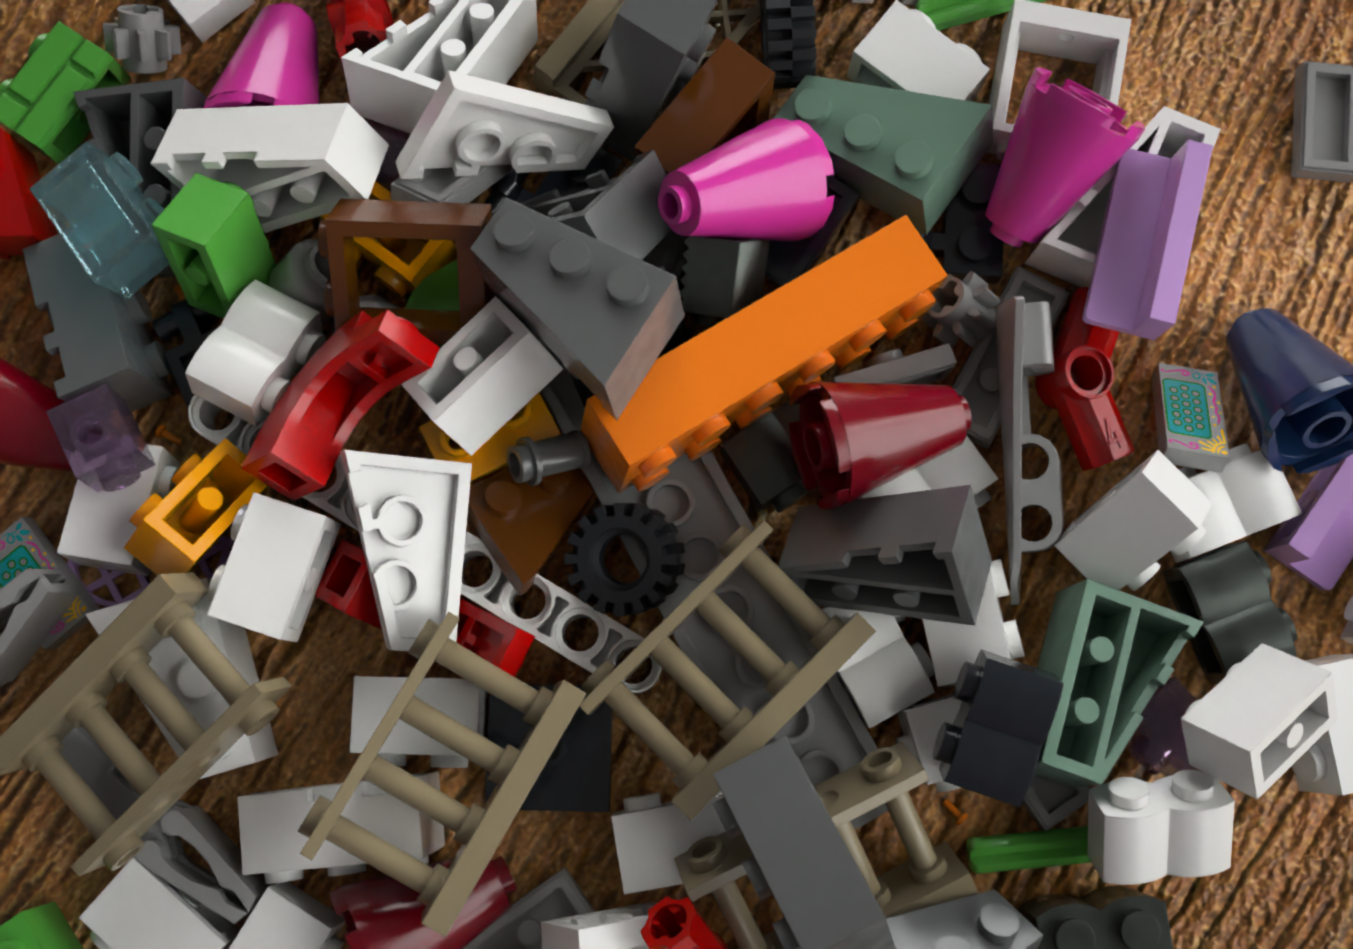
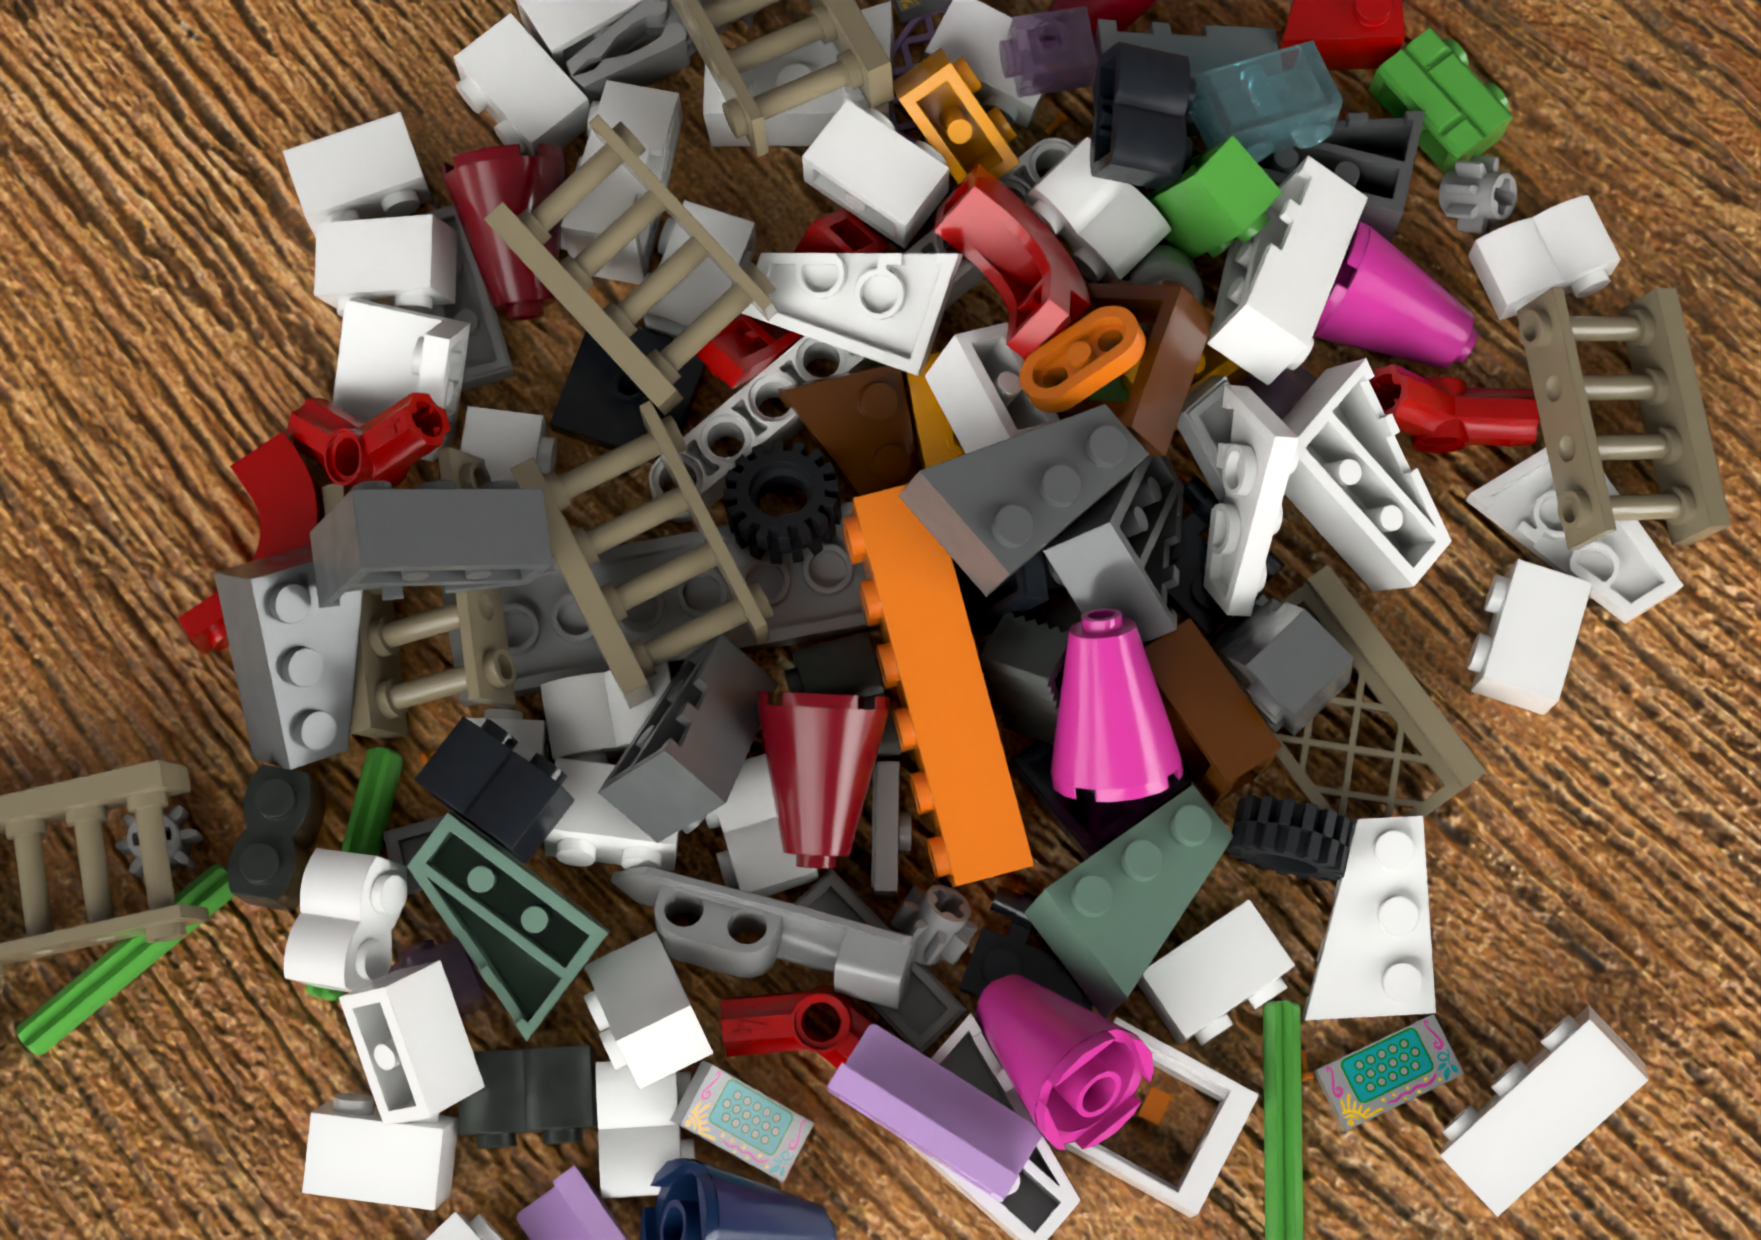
camera: 105 degrees right, 5 degrees down
(151, 322) = (1140, 116): none -> black brick
(424, 295) = (1082, 360): none -> orange plate
(532, 459) = (904, 447): dark grey pin -> none

